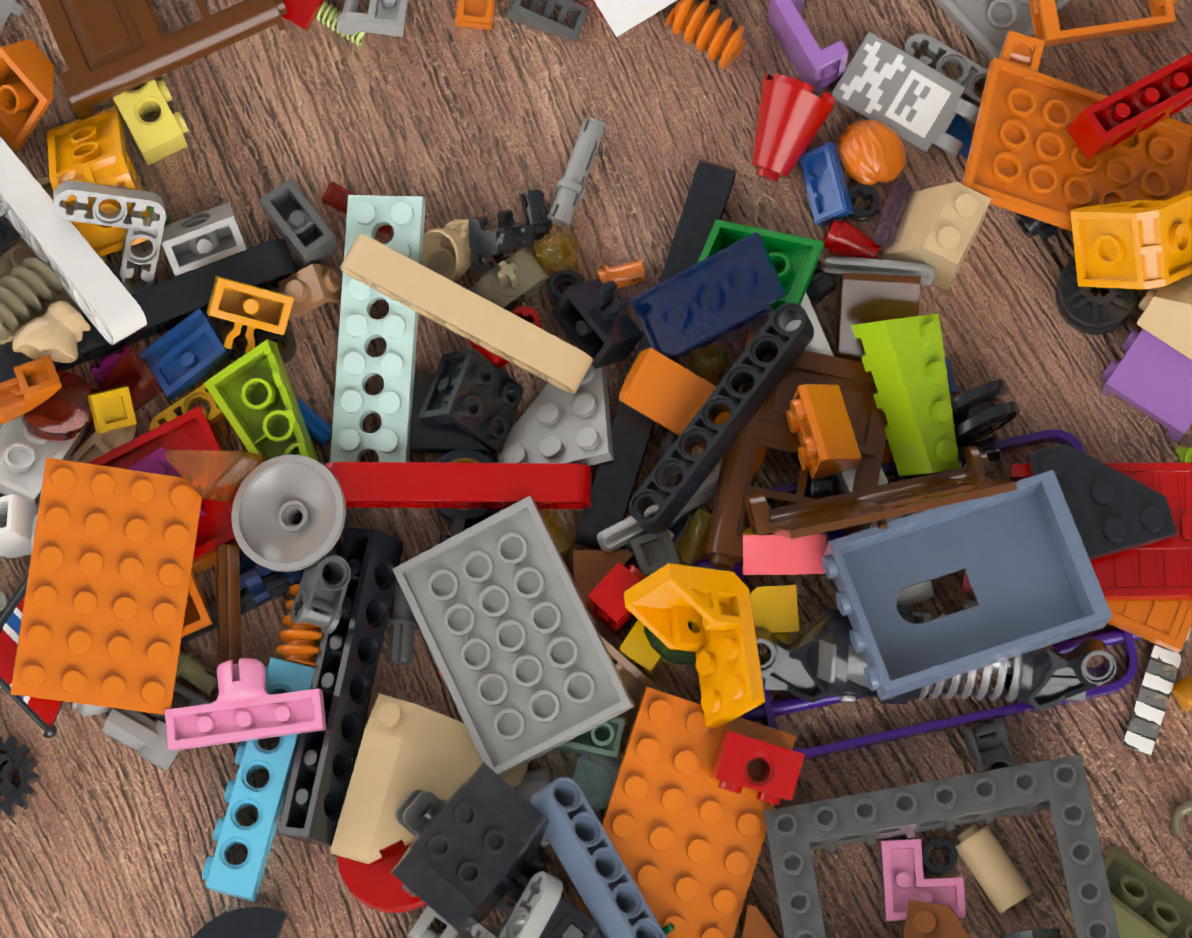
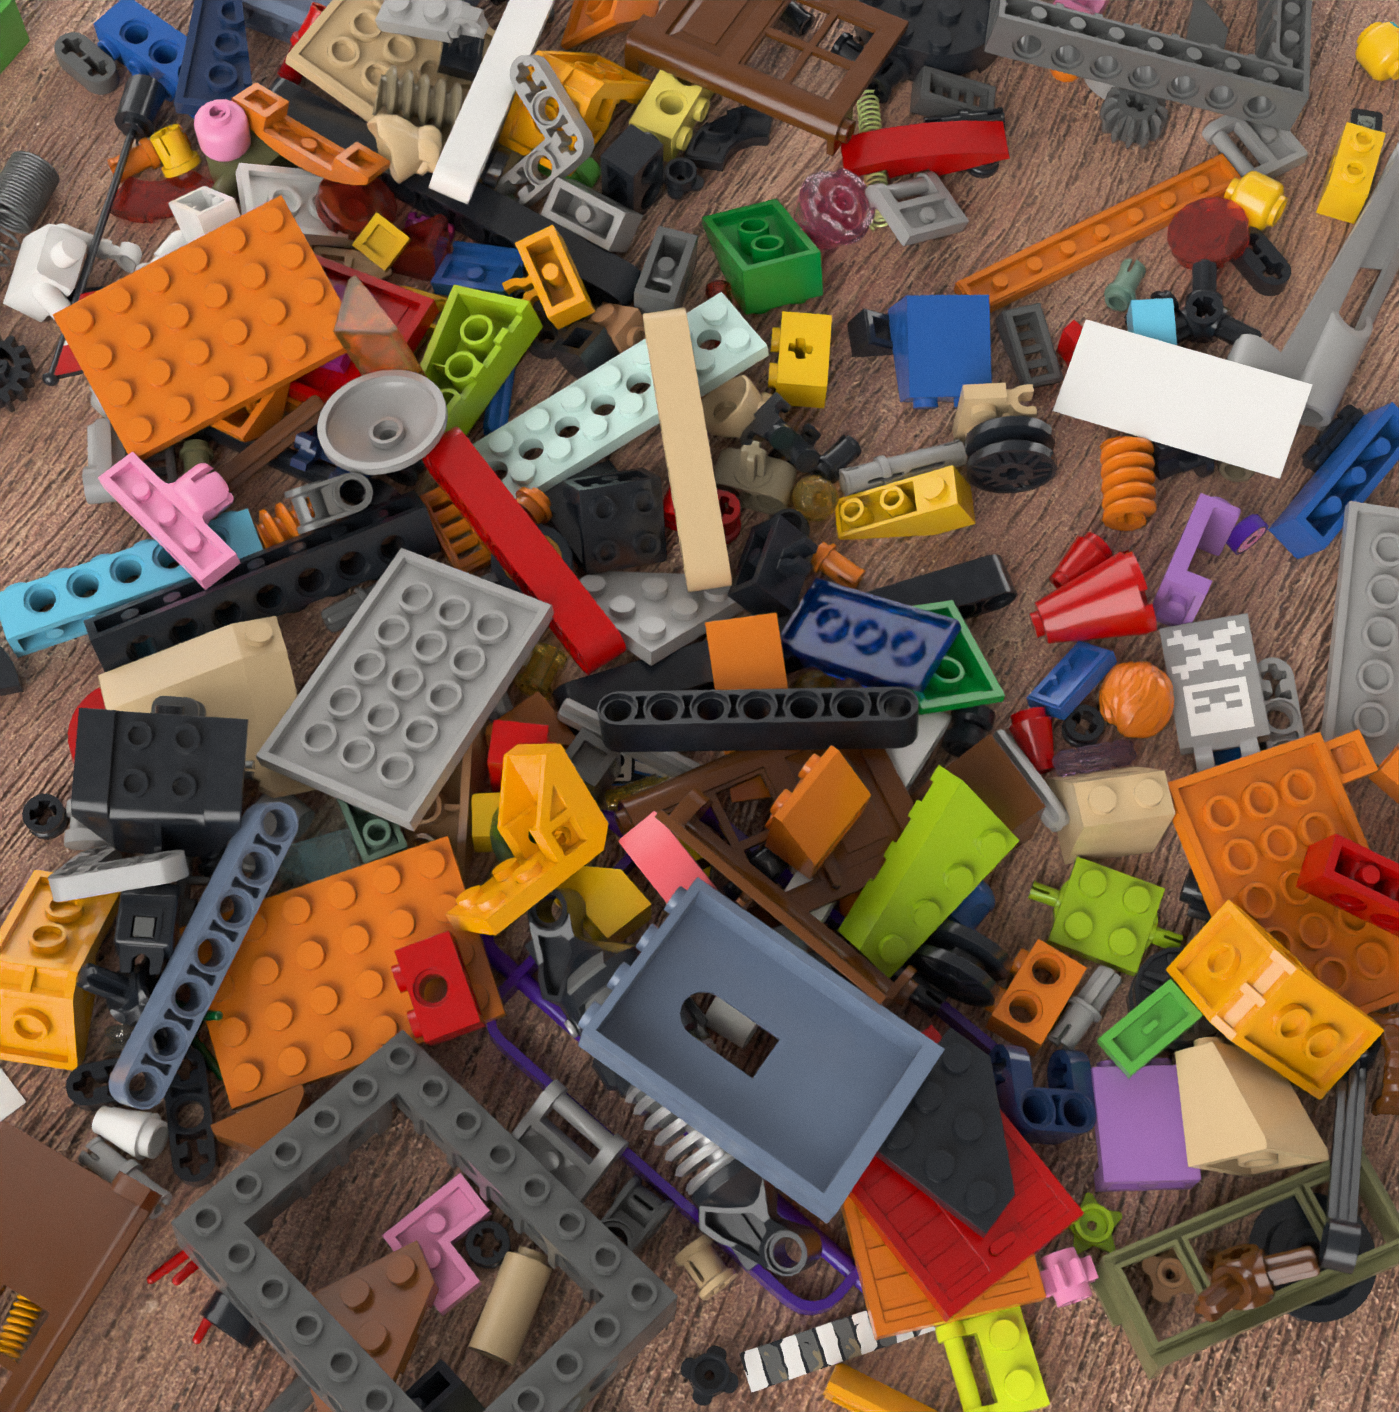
camera: 50 degrees right, 10 degrees down
(191, 181) = (633, 169): none -> black brick
(197, 92) = (726, 136): none -> black tile
(206, 140) = (681, 169): none -> black plate
(314, 325) = (584, 348): none -> black brick
(327, 139) = (765, 256): none -> green slope
(334, 63) = (833, 208): none -> clear pink cone
(405, 536) = (443, 510): none -> orange slope
(420, 451) = (535, 504): none -> orange plate
(430, 159) = (802, 358): none -> yellow brick
(451, 110) = (870, 334): none -> black slope
(509, 75) = (940, 346): none -> blue slope
(584, 87) = (987, 402): none -> tan plate
(612, 195) = (909, 507): none -> yellow slope
(632, 93) = (1010, 454): none -> black wheel
(742, 108) = (1081, 556): none -> red cone
(911, 767) = (557, 1151): none -> light grey plate
(1005, 293) = (1105, 916): none -> lime plate
(1038, 380) = (1041, 1000): none -> orange brick
(1055, 726) = (705, 1267): none -> tan bush
(1058, 355) = (1085, 1008): none -> light grey axle
(1110, 327) = (1149, 1028): none -> bright green plate
(1118, 421) = (1045, 1113): none -> dark blue piece
(1133, 767) = (707, 1389): none -> black plate

